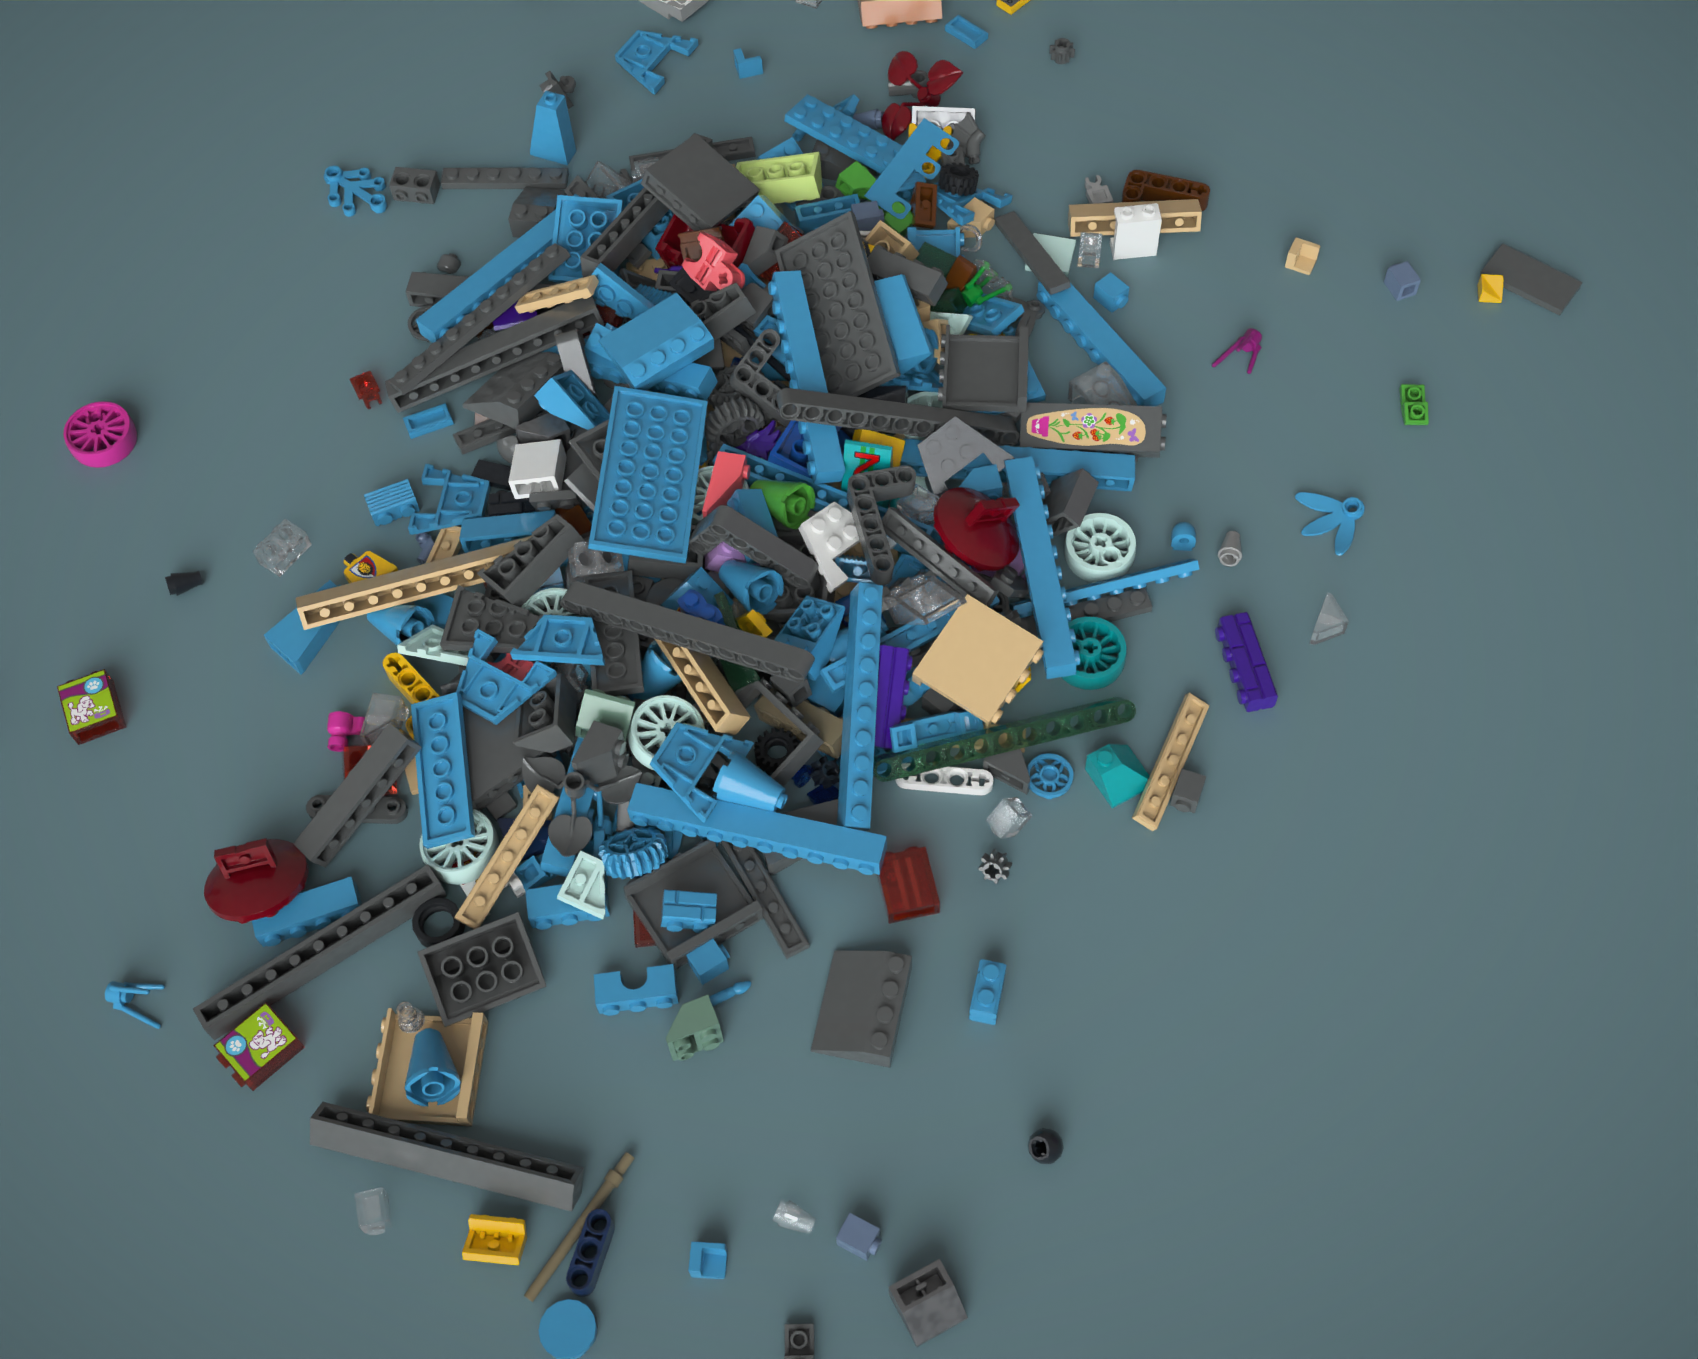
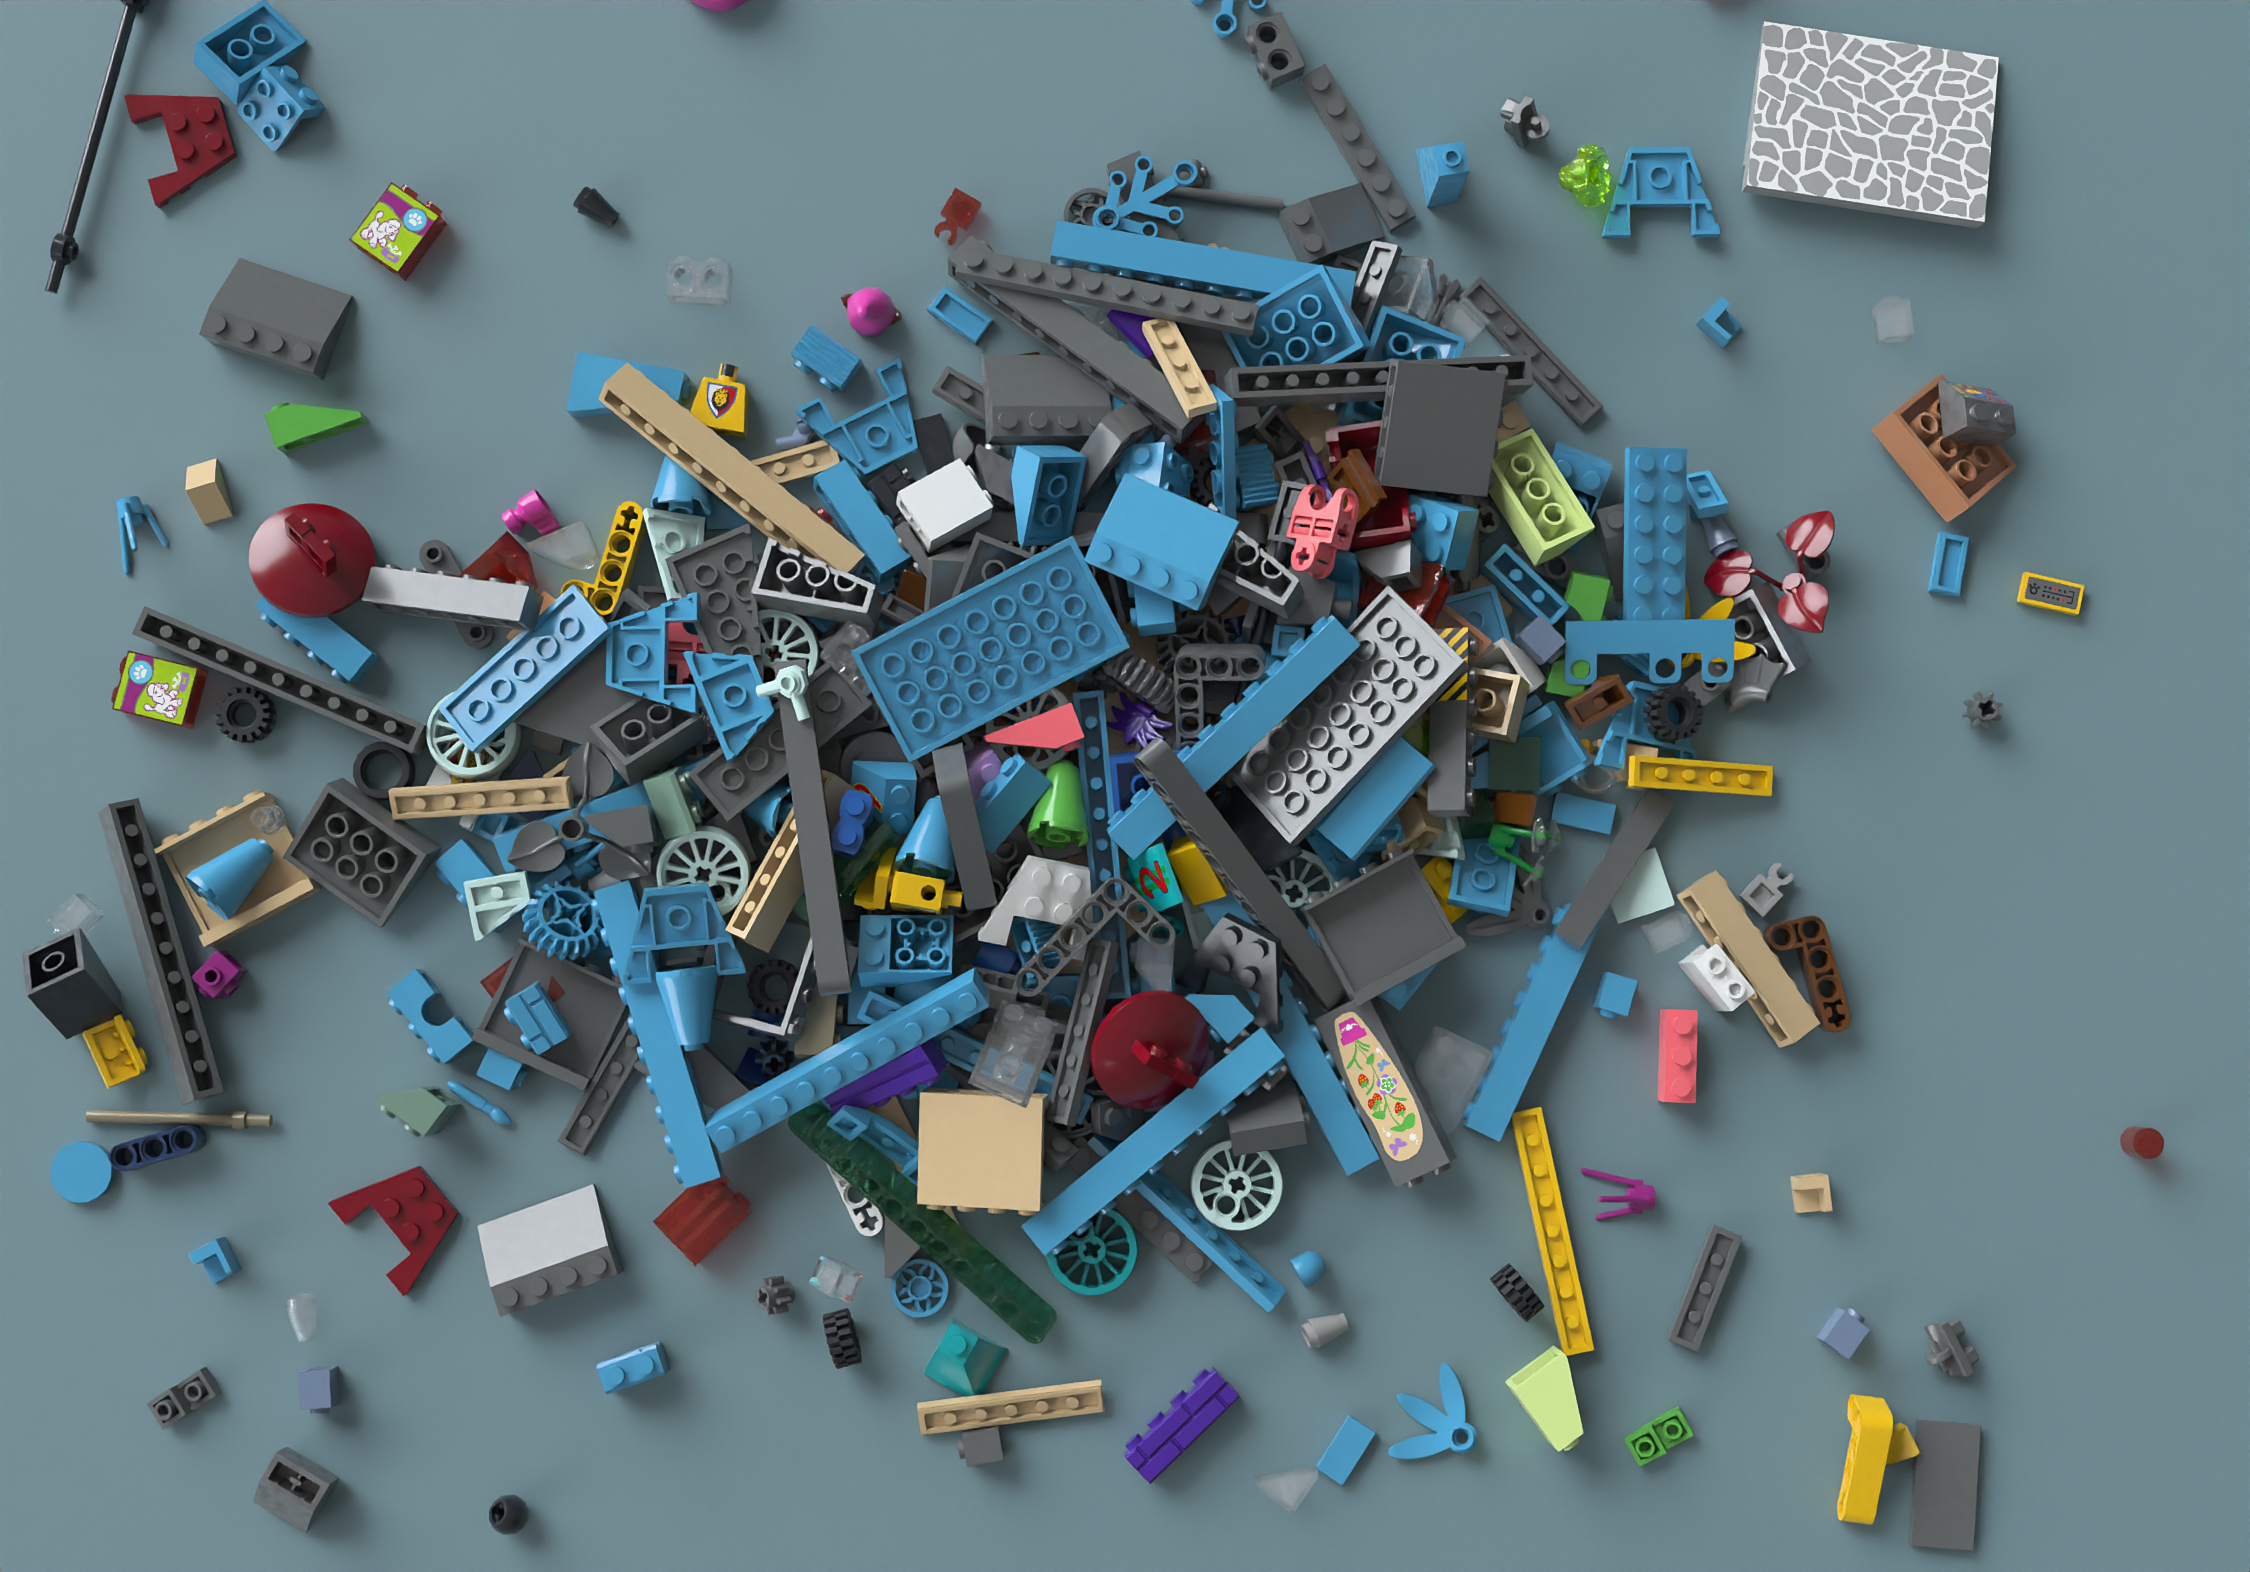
camera: 50 degrees right, 25 degrees up
(79, 819) = (277, 318): none -> dark grey slope
(153, 932) = (208, 492): none -> tan slope
(164, 835) = (301, 425): none -> bright green slope
(320, 983) = (227, 711): none -> black tyre
(383, 464) = (870, 311): none -> dark pink hat
(420, 1235) = (71, 984): none -> black slope
(446, 254) = (1141, 201): none -> dark azure plant
(479, 251) = (1227, 198): none -> dark grey bar
(496, 1125) = (219, 975): none -> magenta brick
(582, 586) = (792, 684): none -> light aqua piece
(613, 79) = (1587, 175): none -> clear neon green plant
(769, 1090) = (412, 1210): none -> dark red wing
(778, 602) = (909, 892): none -> yellow torso
(992, 253) = (1582, 813): none -> dark azure tile
(1005, 185) = (1700, 776): none -> yellow plate
(1054, 835) = (842, 1338): none -> black tyre
(1171, 279) = (1677, 1056): none -> coral brick
(1245, 396) = (1552, 1231): none -> yellow plate
(1272, 426) = (1517, 1292): none -> black tyre
(1321, 578) = (1345, 1450): none -> dark azure tile
(1329, 336) = (1704, 1287): none -> dark grey plate
(1354, 441) = (1549, 1398): none -> yellowish green slope
(1369, 93) = (2142, 1142): none -> clear red brick
(1444, 235) = (1947, 1349): none -> dark grey hips
(1492, 302) = (1865, 1458): none -> yellow beam

